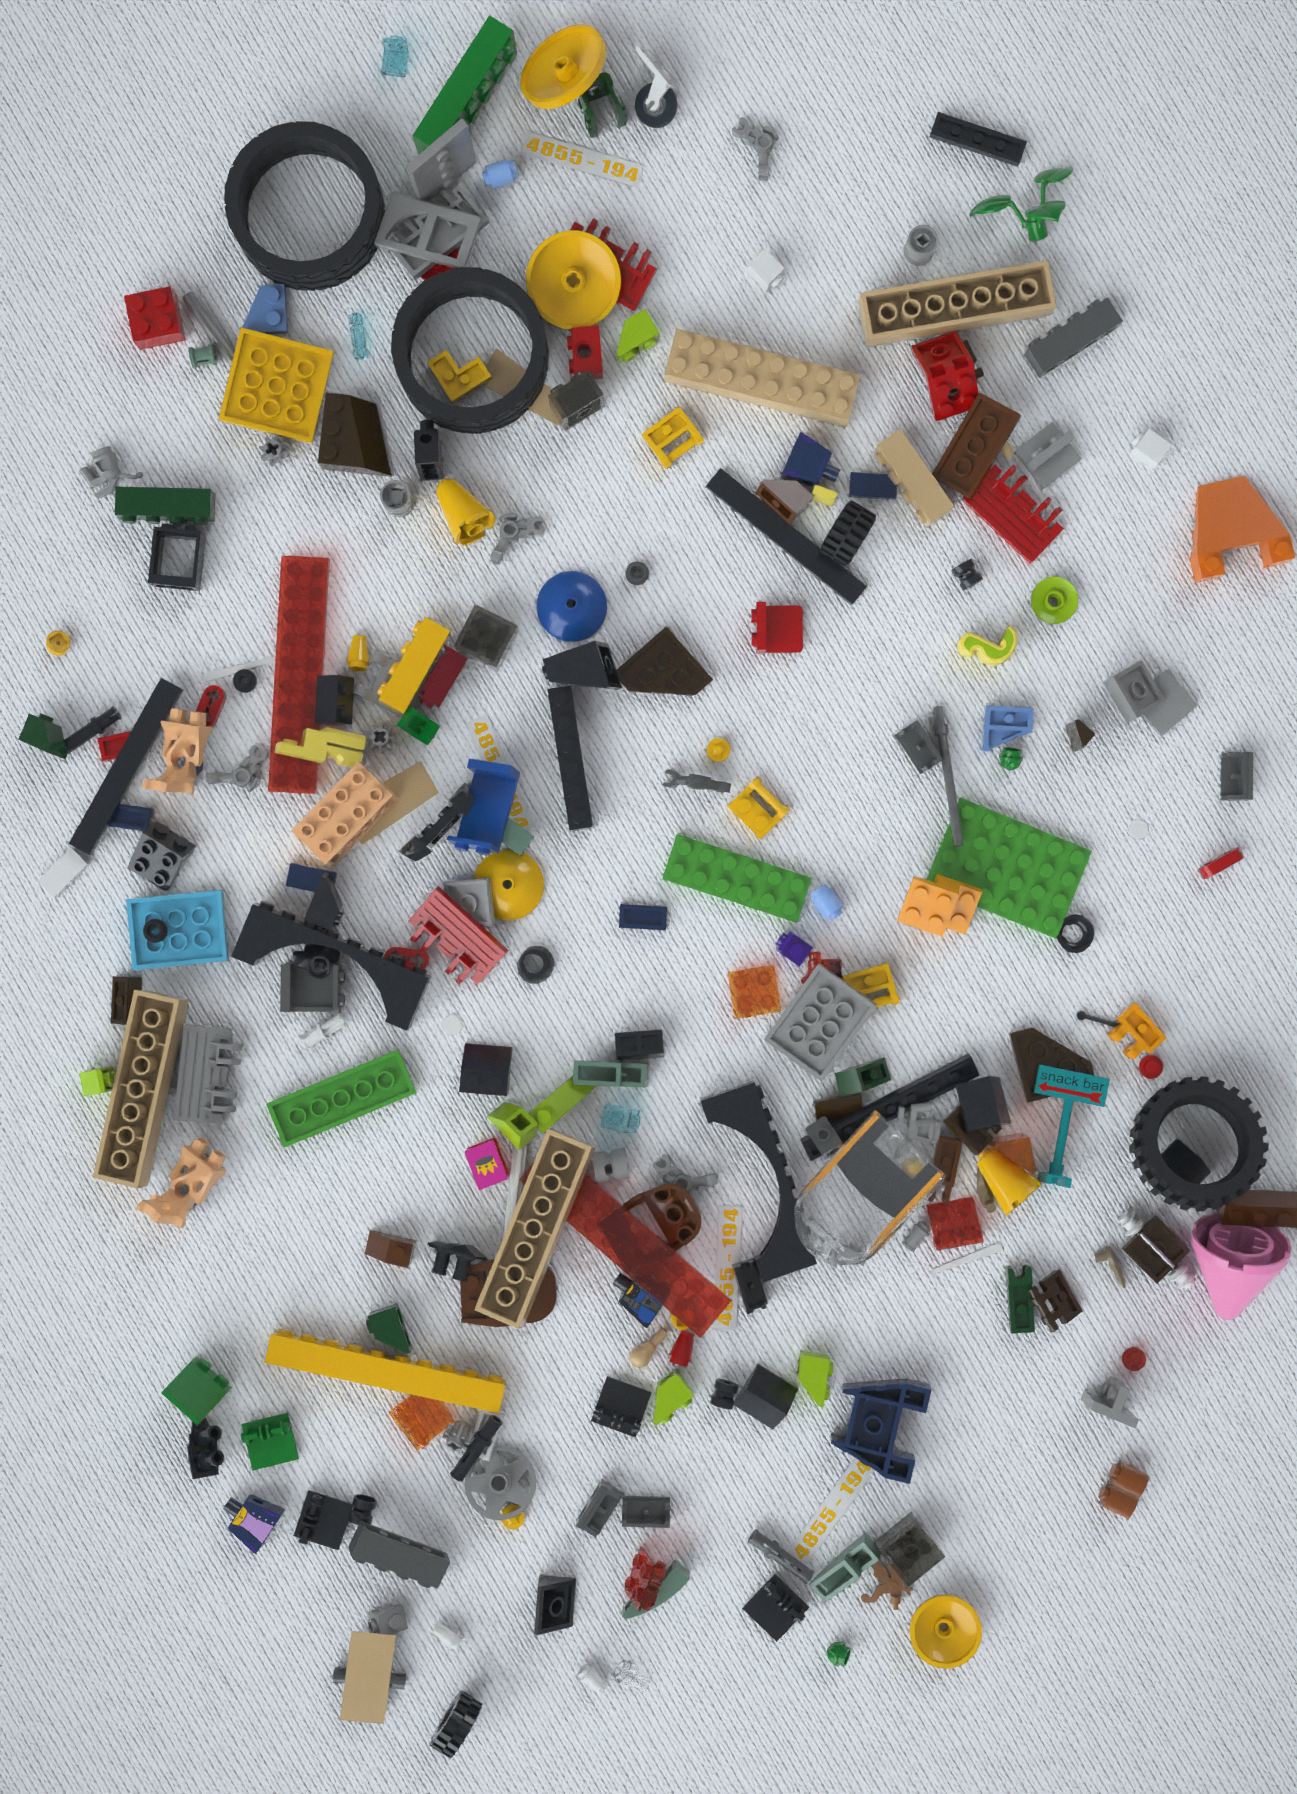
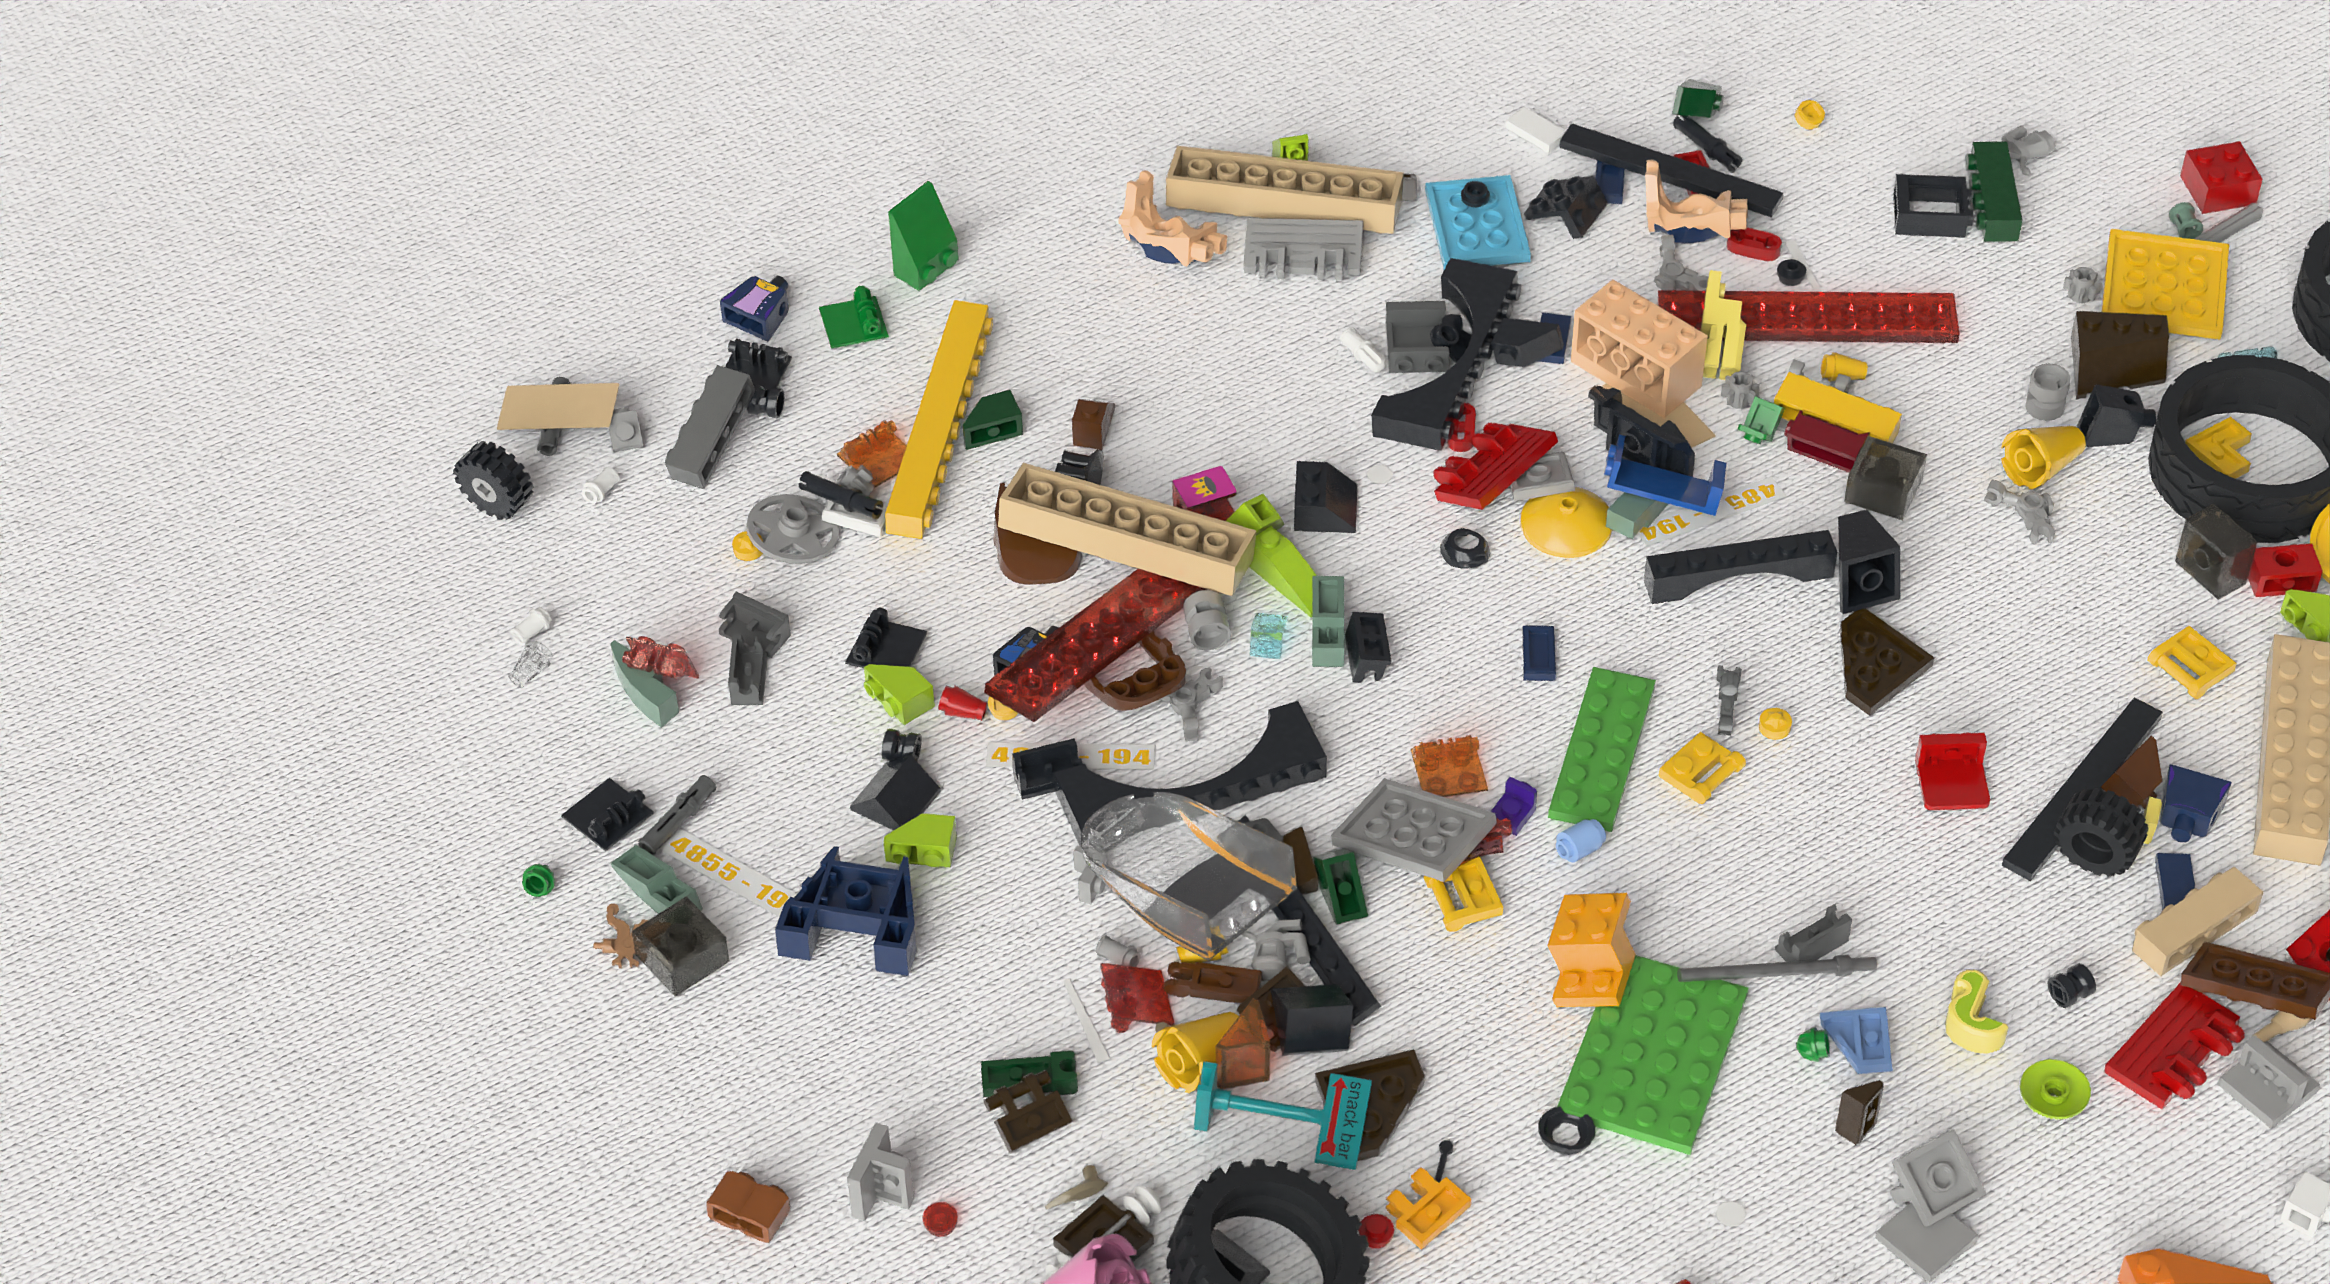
camera: 90 degrees right, 40 degrees down
(203, 1450) = (846, 260): black connector -> none
(269, 310) = (2258, 280): medium blue wing -> none
(334, 700) = (1780, 342): black brick -> none
(341, 1098) = (1281, 370): bright green plate -> none
(554, 1603) = (633, 578): black slope -> none
(576, 622) = (1944, 573): blue dish -> none
(637, 566) = (2000, 631): dark grey plate -> none
(642, 1354) = (956, 665): tan piece -> none
(946, 1646) = (557, 976): yellow dish -> none

